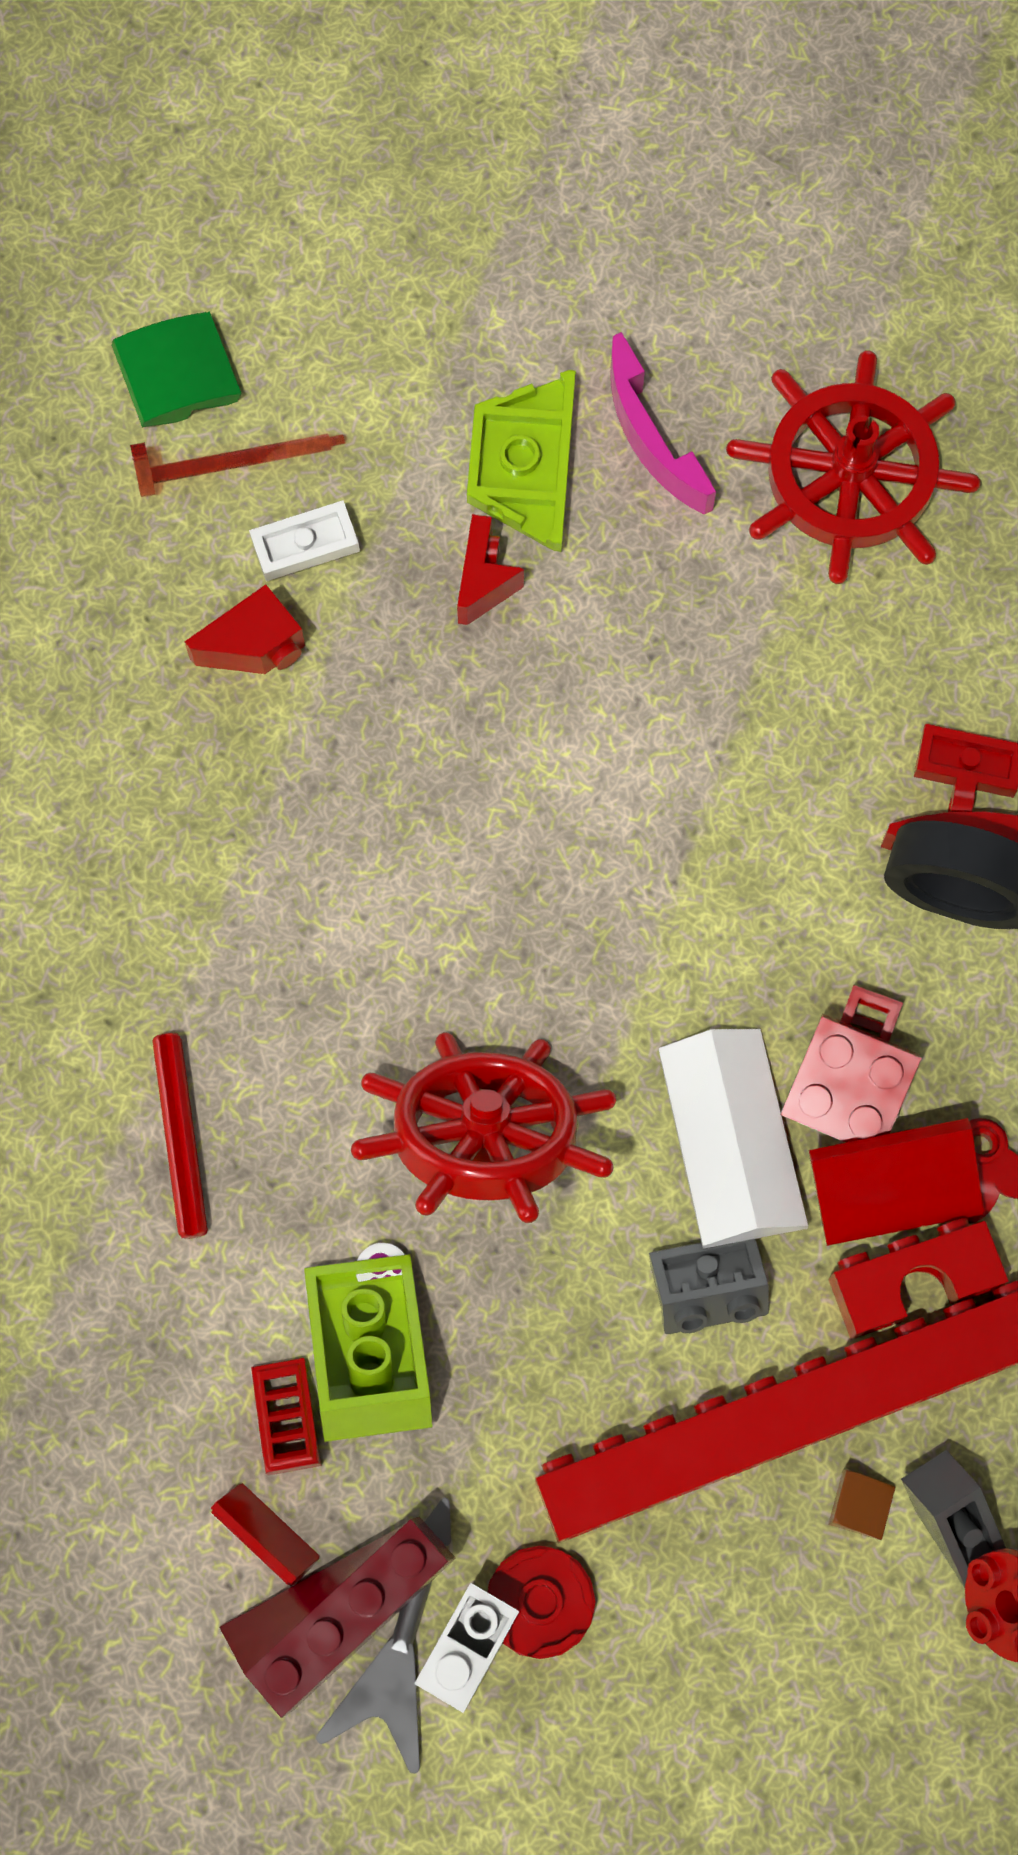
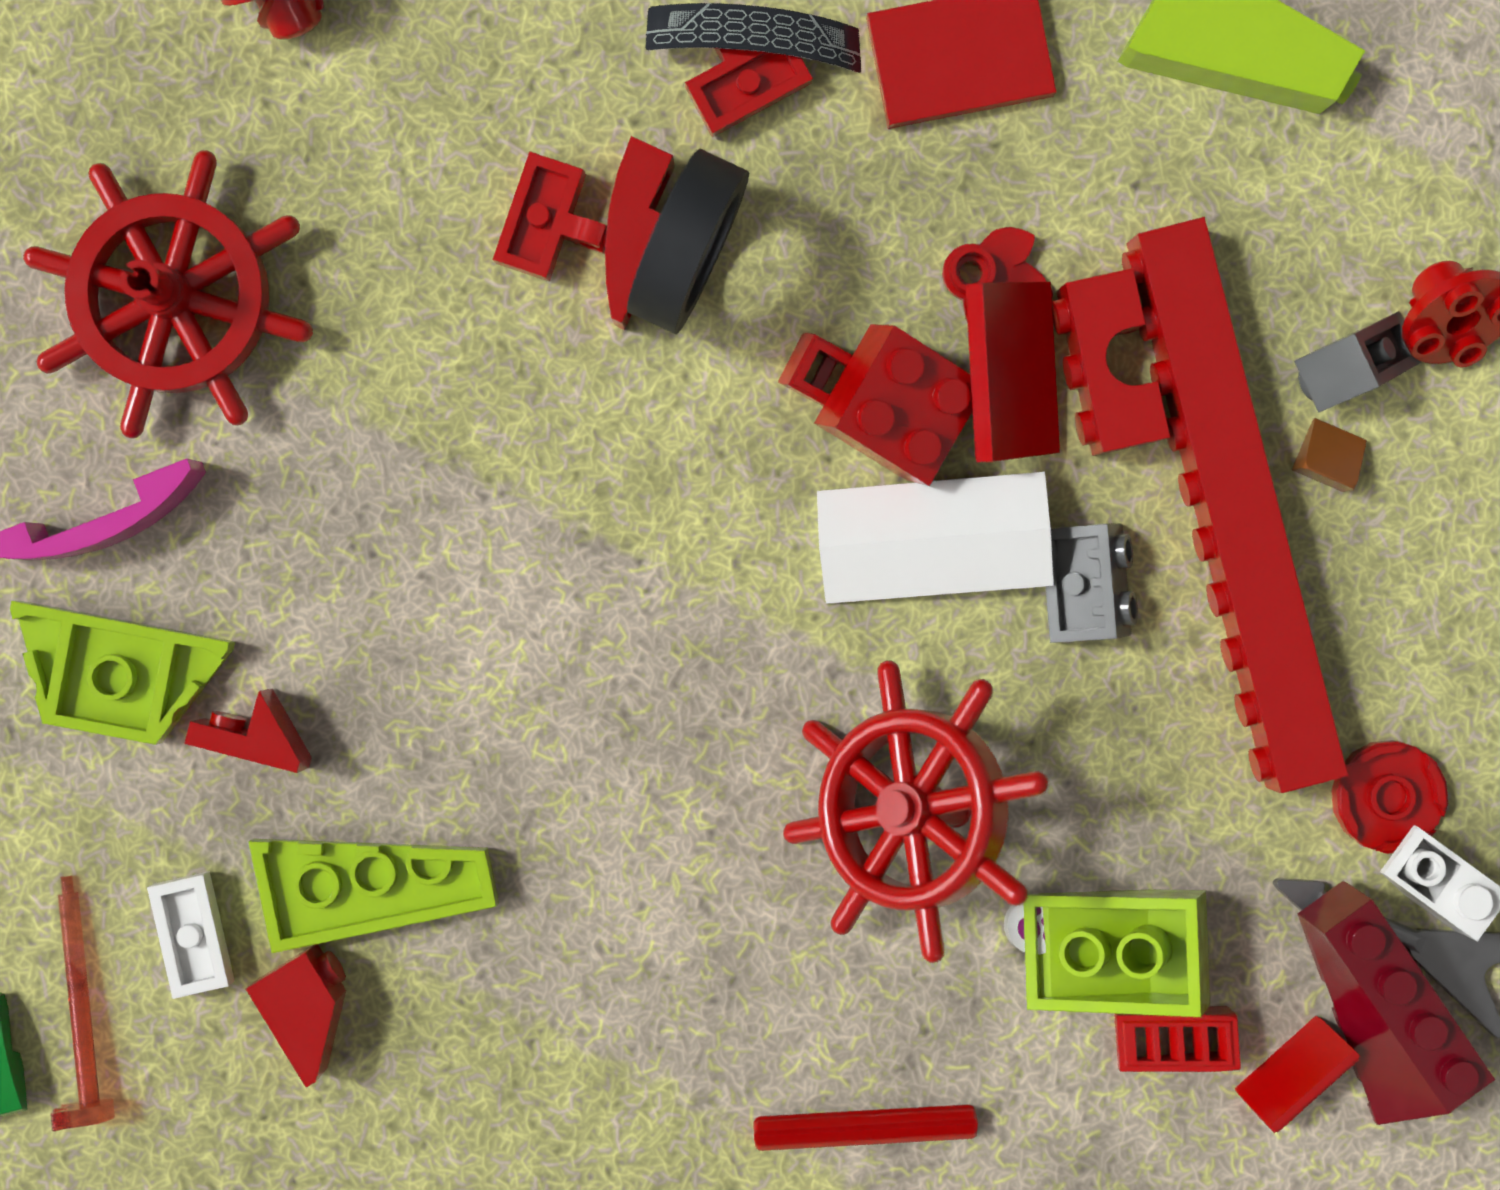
camera: 85 degrees left, 15 degrees up
(358, 671) = (355, 888): none -> lime wing

